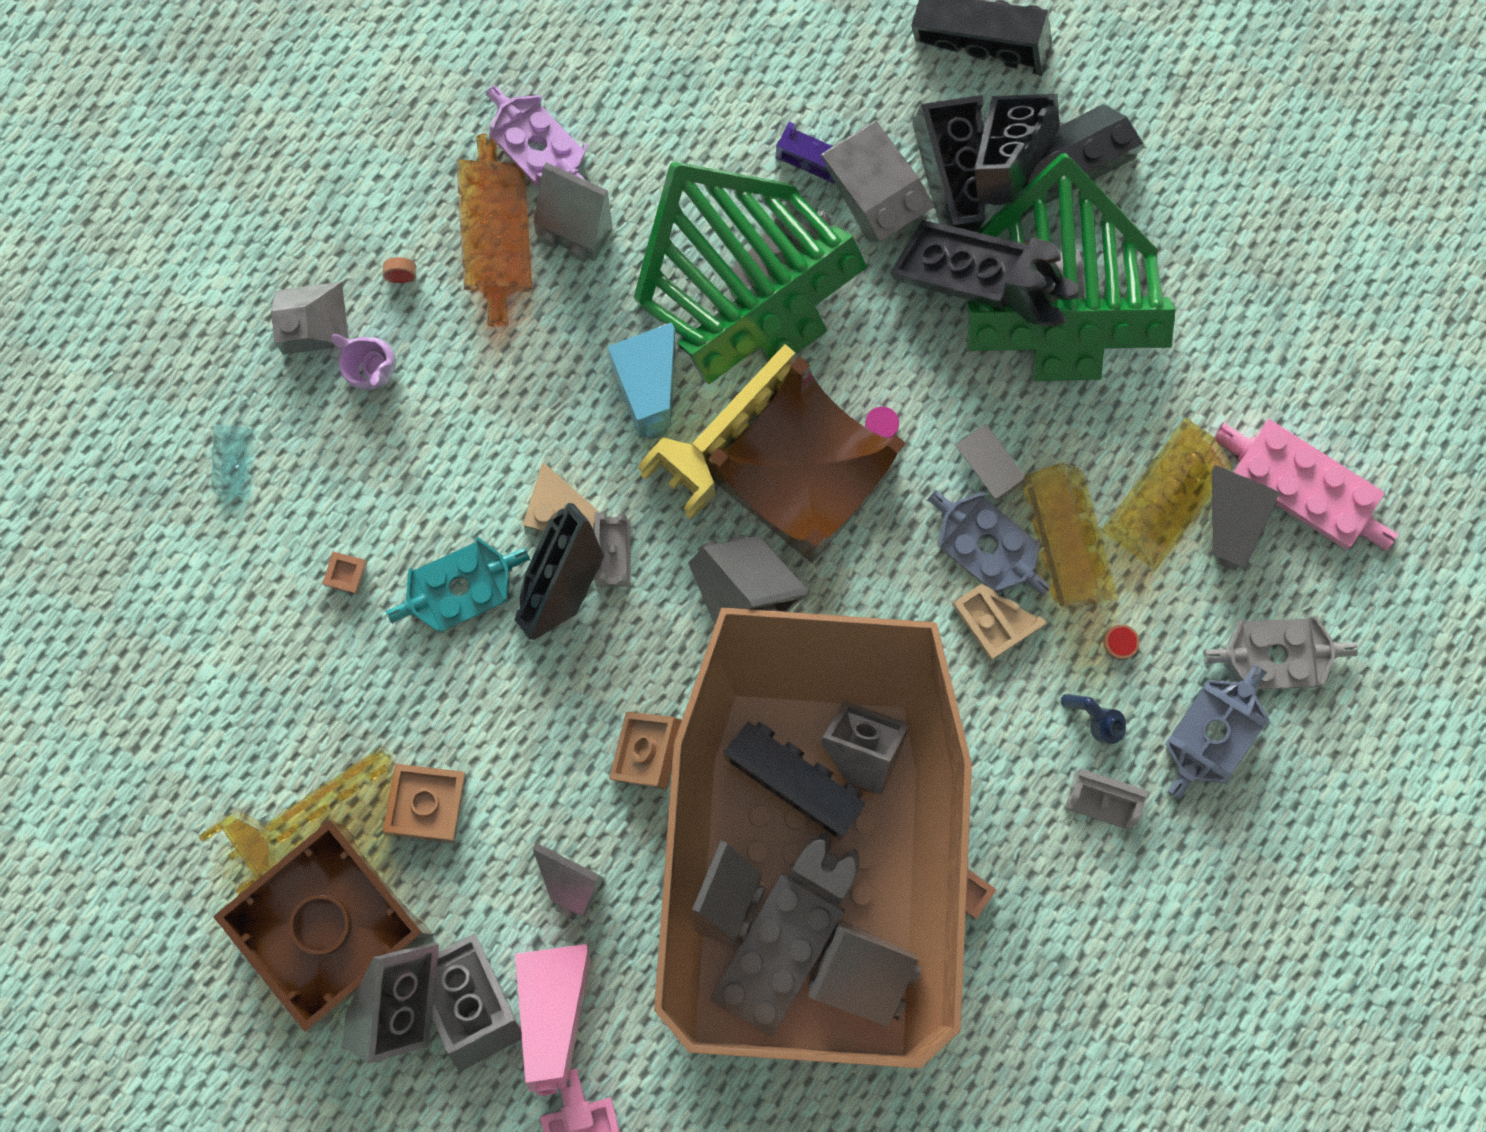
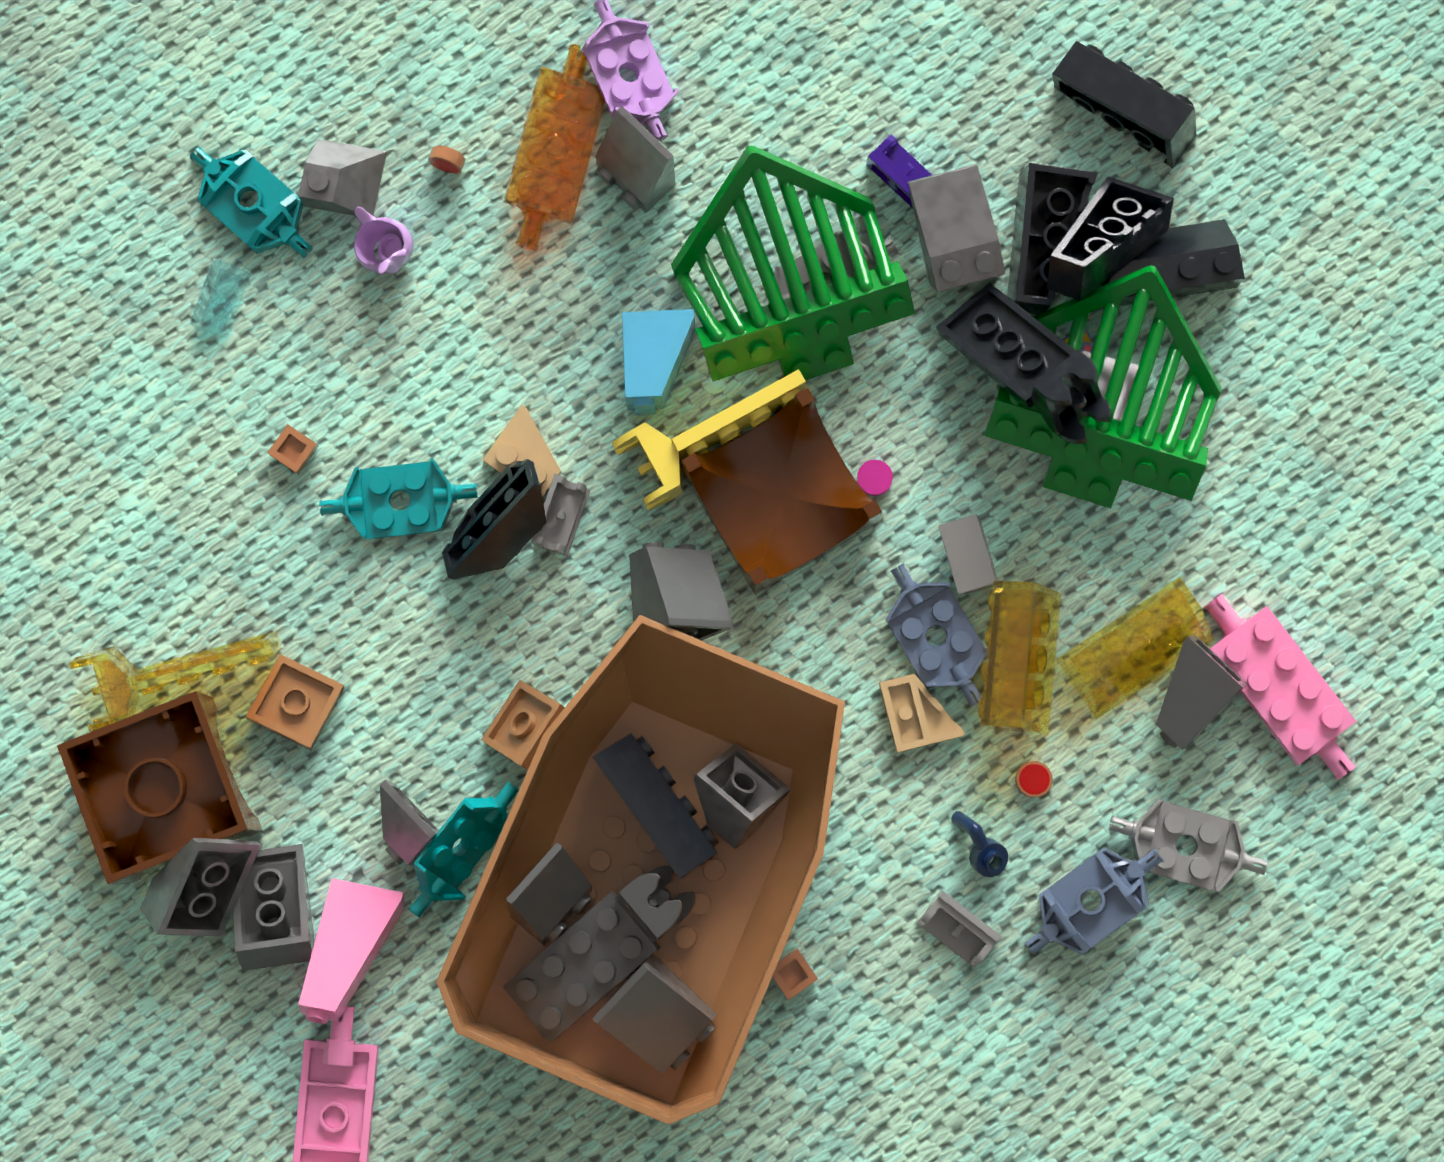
camera: 25 degrees right, 5 degrees up
(249, 382) = (261, 226): none -> teal plate
(616, 906) = (443, 868): none -> teal plate

